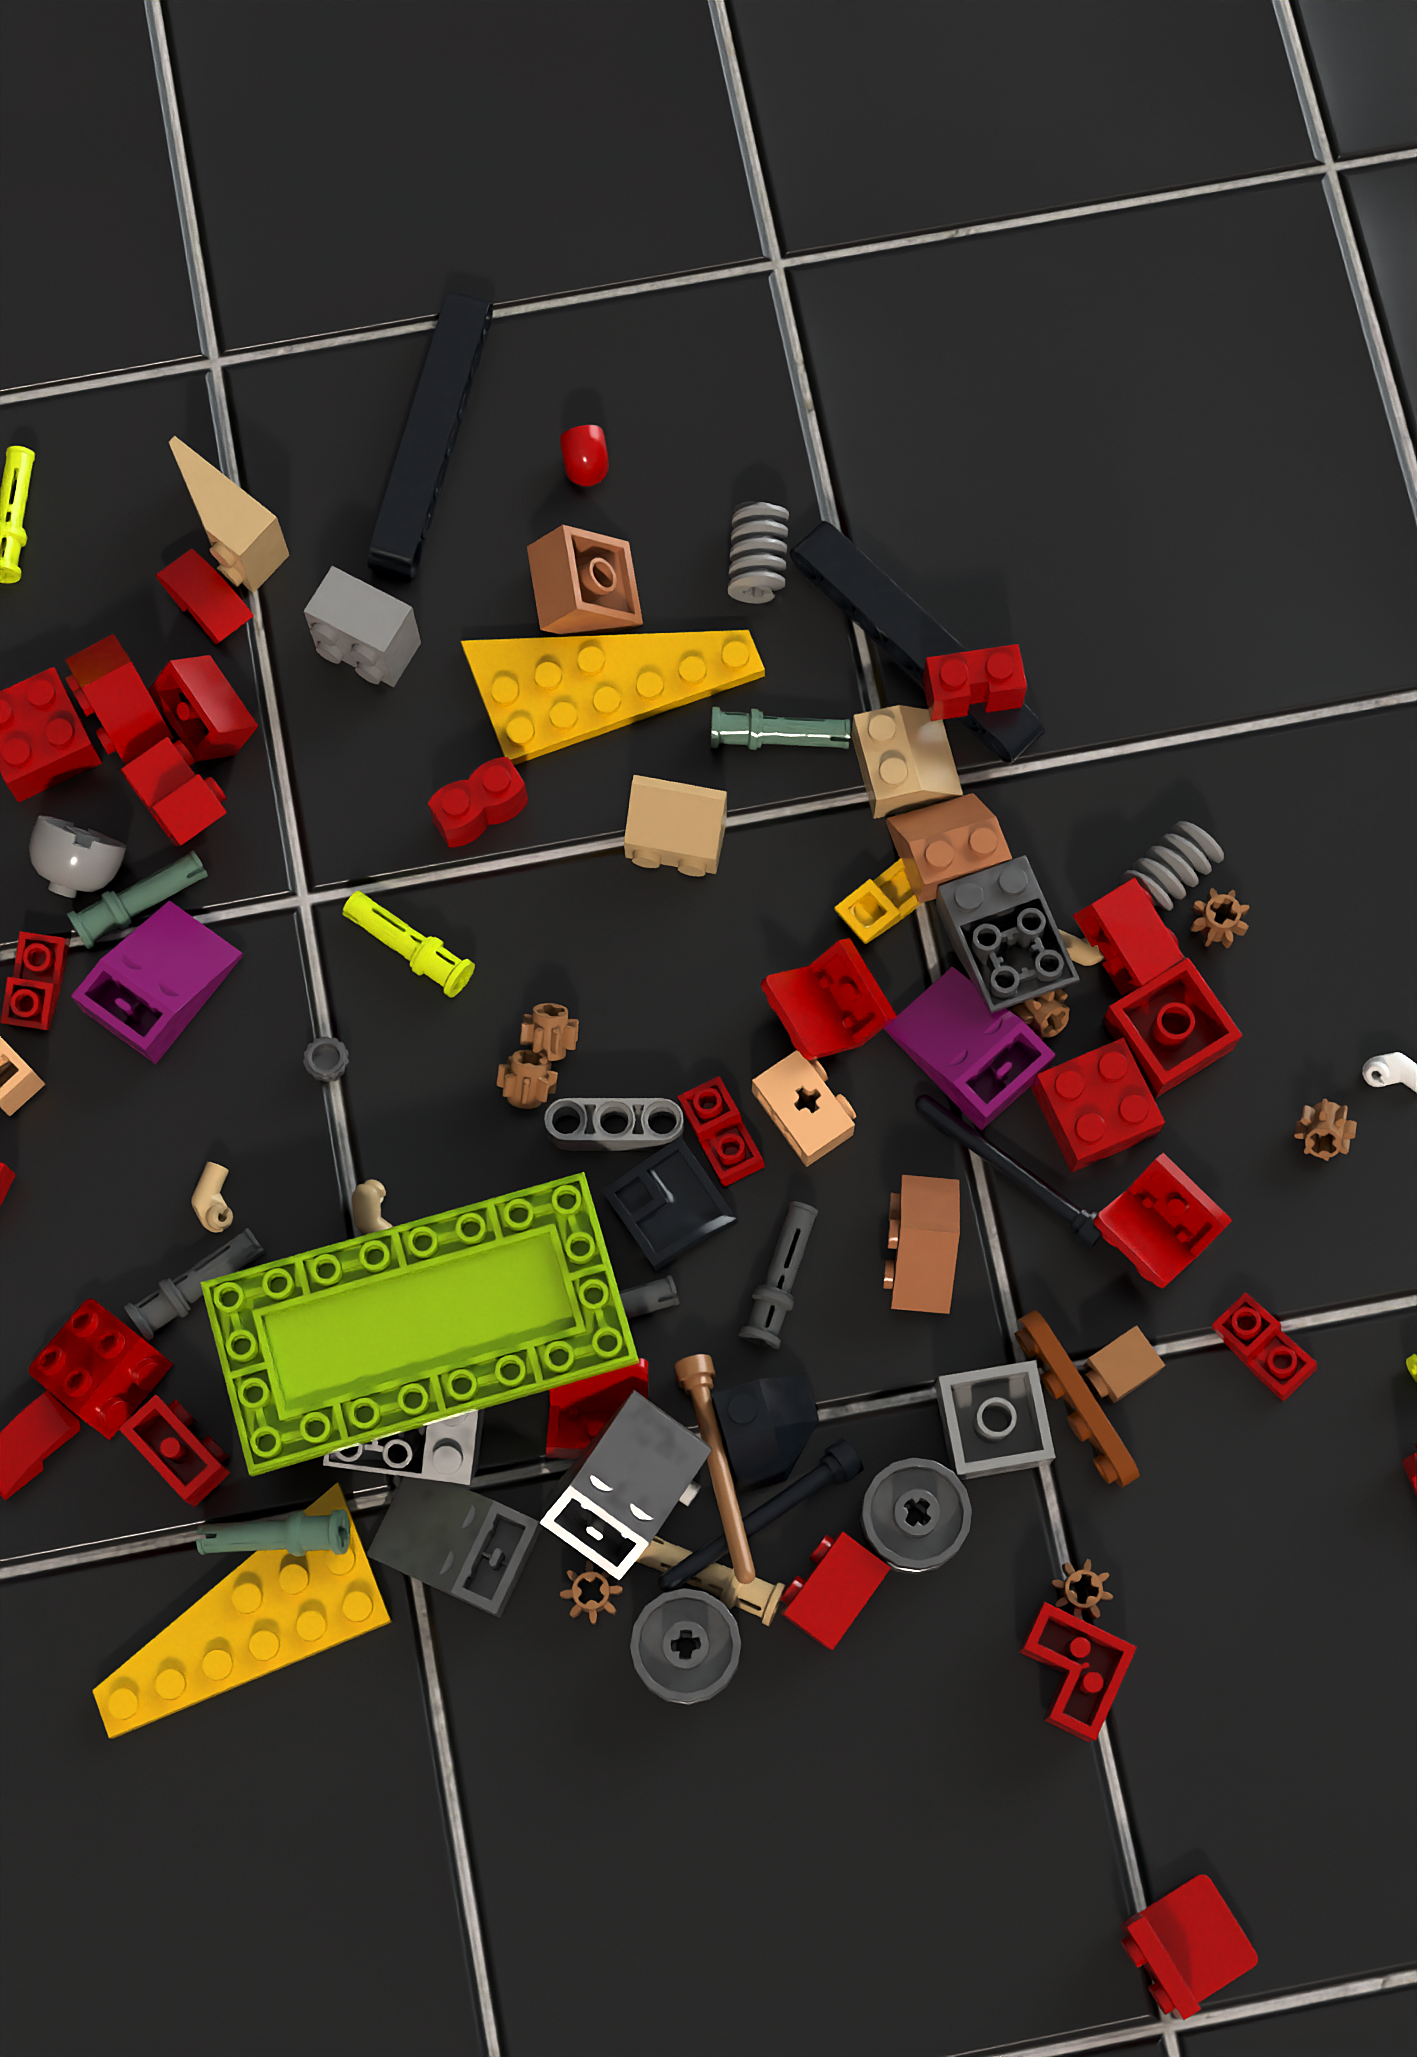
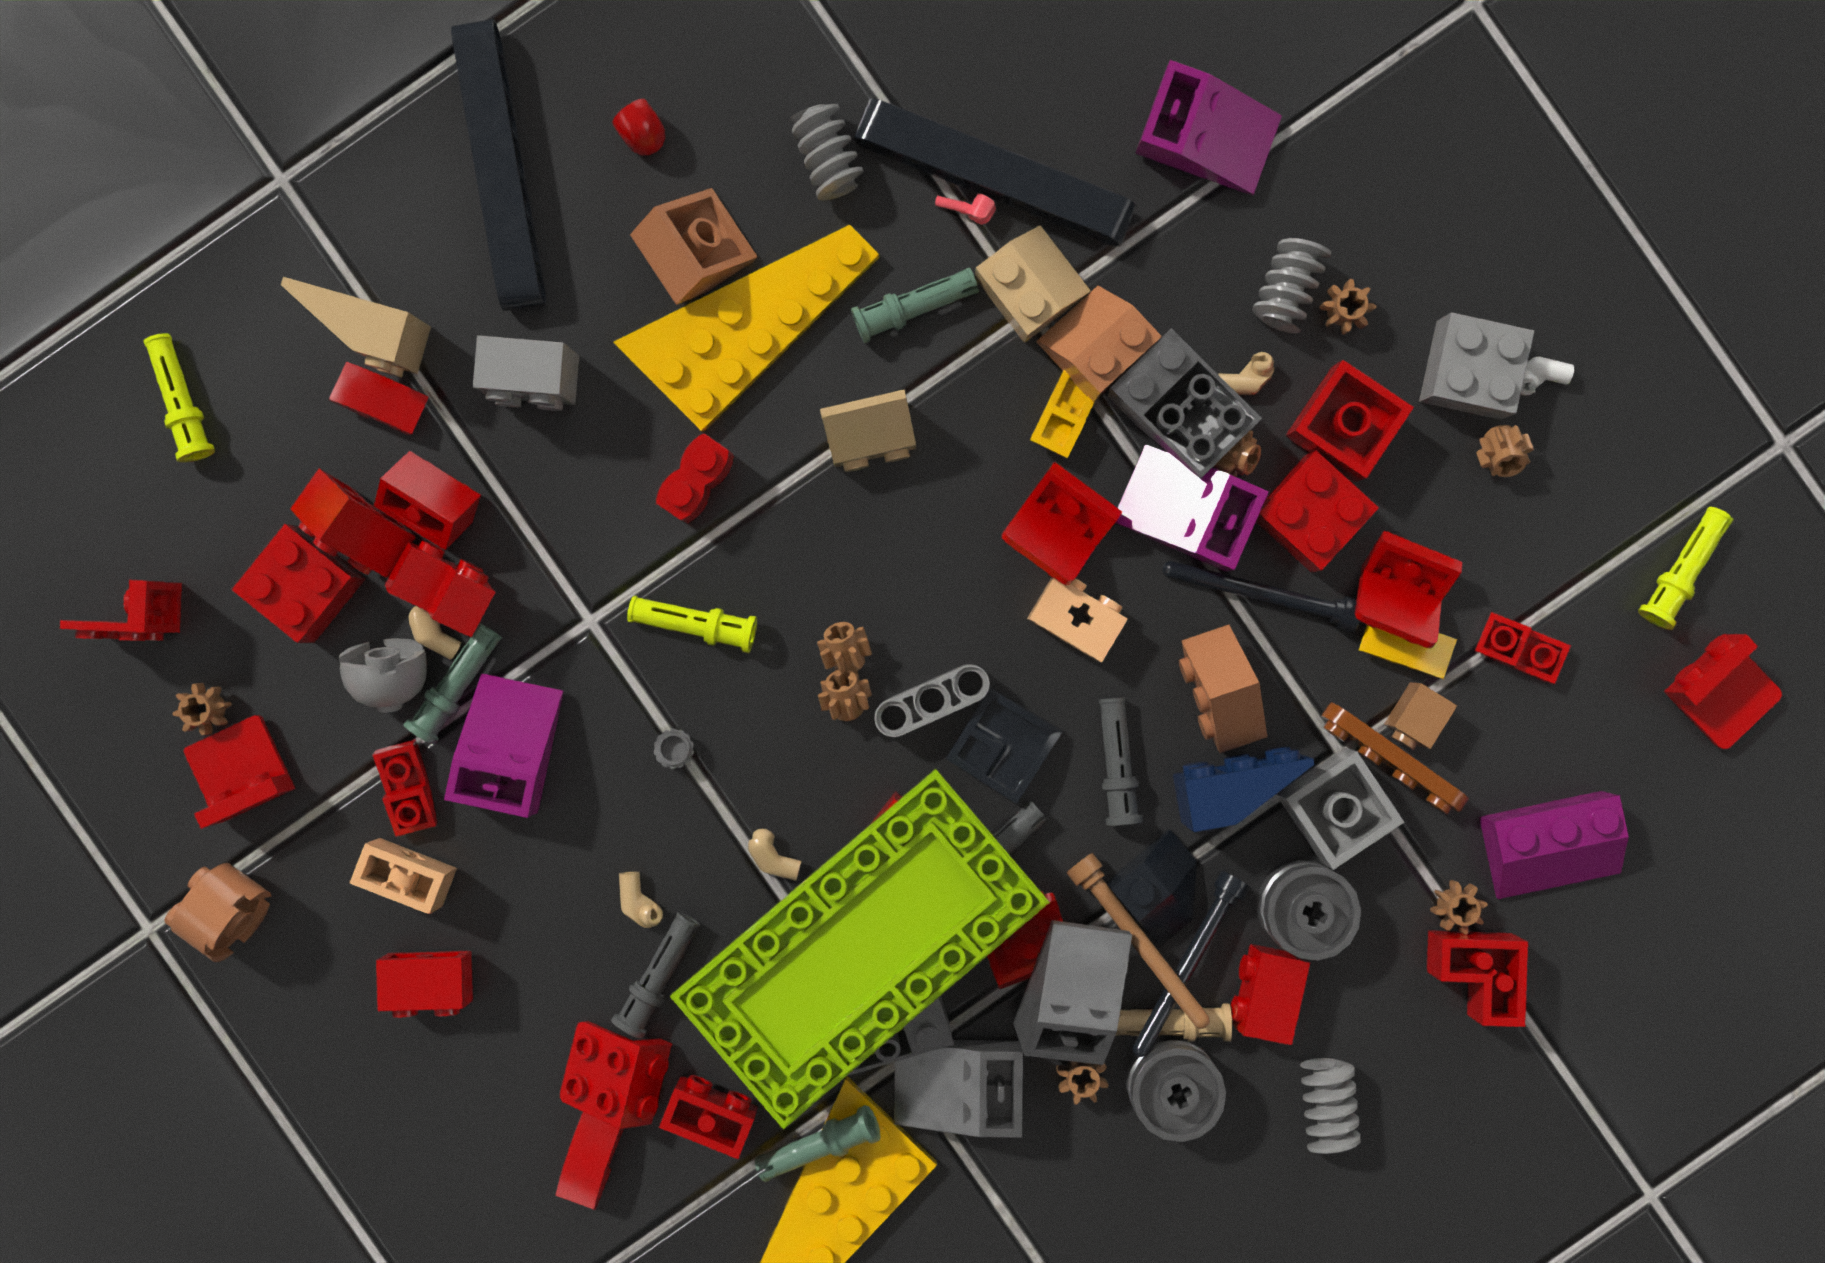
camera: 30 degrees left, 15 degrees up
(138, 835) = (429, 634): none -> tan arm
(721, 1131) = (1018, 665): red slope -> none
(847, 1745) = (1333, 1105): none -> light grey piece
(882, 1347) = (1229, 793): none -> dark blue slope
(885, 672) = (979, 211): none -> coral hand
(974, 677) = (1080, 183): red brick -> none
(1129, 936) = (1285, 360): red brick -> none
(1148, 687) = (1208, 129): none -> magenta slope
(1156, 1307) = (1397, 650): none -> yellow slope
(1188, 1946) = (1646, 1137): red bracket -> none
(1215, 1570) = (1555, 843): none -> magenta slope
(1329, 1032) = (1476, 366): none -> light grey brick

